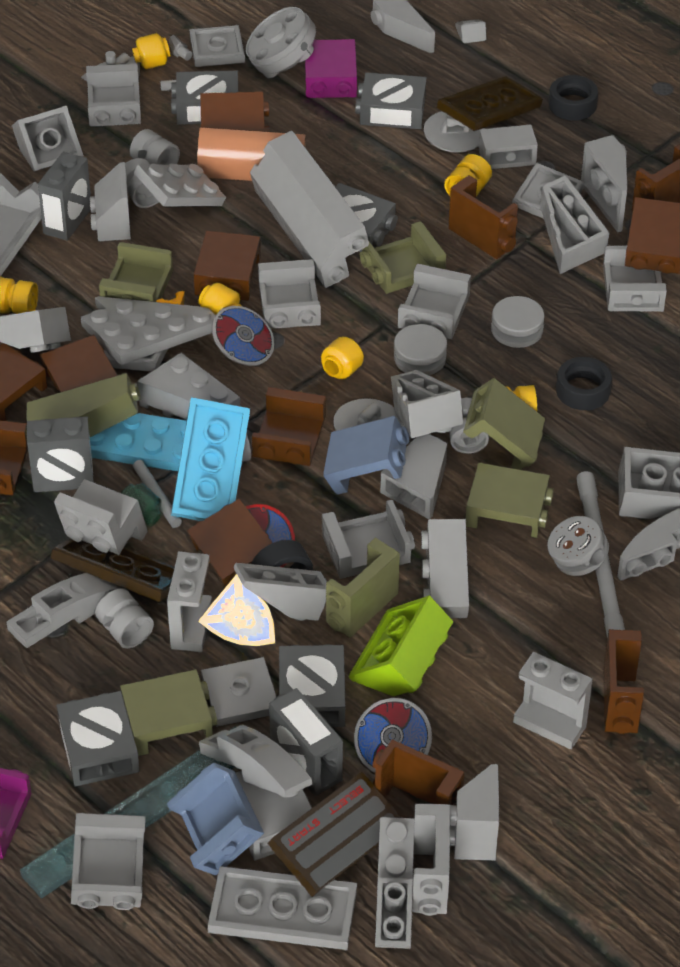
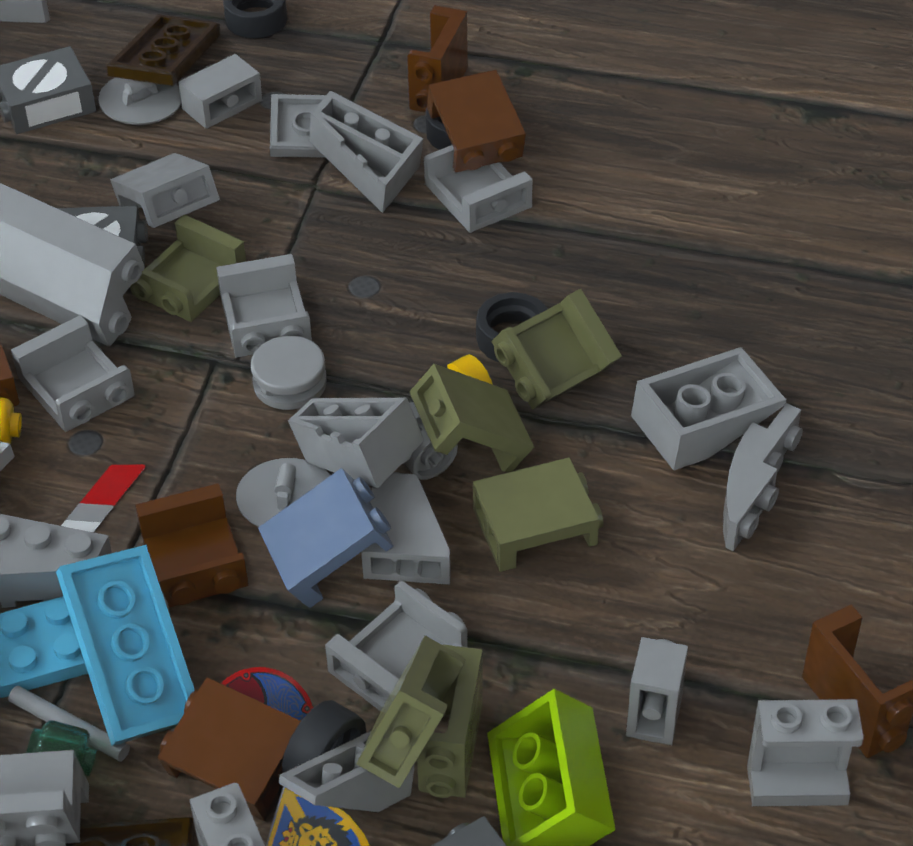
camera: 30 degrees left, 0 degrees up
(243, 335) = (49, 452): shield -> none
(260, 377) = (103, 497): none -> red sticker
(337, 556) = (411, 712): none -> olive panel
(342, 358) = (200, 424): yellow head -> none
(420, 199) = (166, 188): none -> light grey panel
(446, 565) = (532, 636): light grey wedge -> none
(473, 166) = (203, 139): yellow wheel -> none
(479, 223) = (258, 187): reddish brown panel -> none
(495, 628) = (656, 690): none -> light grey brick
(517, 321) = (381, 287): light grey head -> none
(578, 545) = (666, 531): light grey head -> none
(588, 496) = (769, 605): light grey piece -> none
(594, 408) = (556, 350): none -> olive panel
(606, 177) = (371, 77): light grey slope -> none

